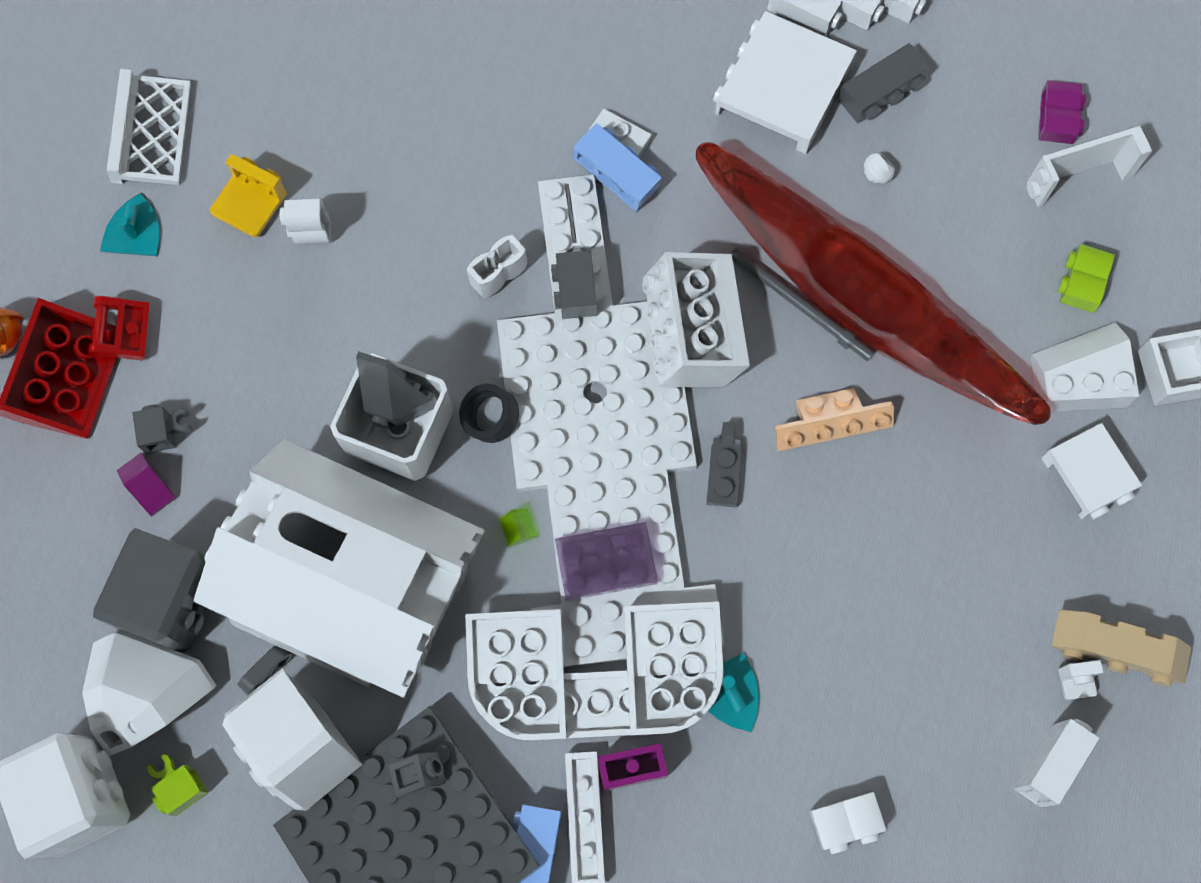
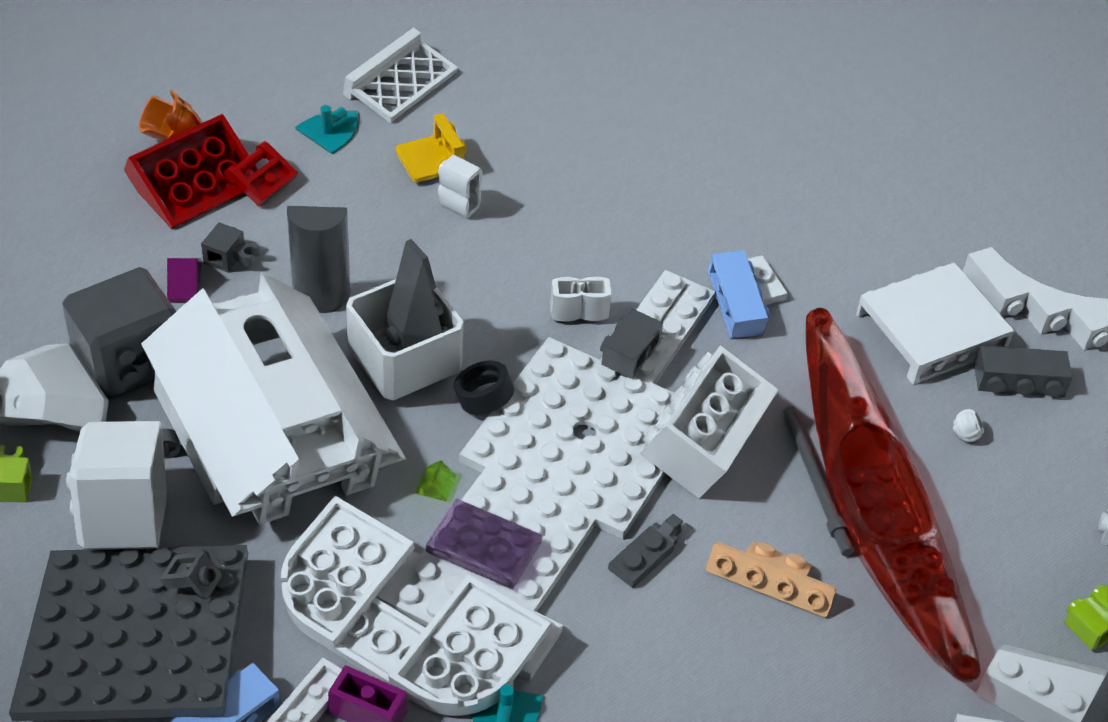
camera: 30 degrees right, 25 degrees down
(261, 396) = (320, 254): none -> dark grey brick

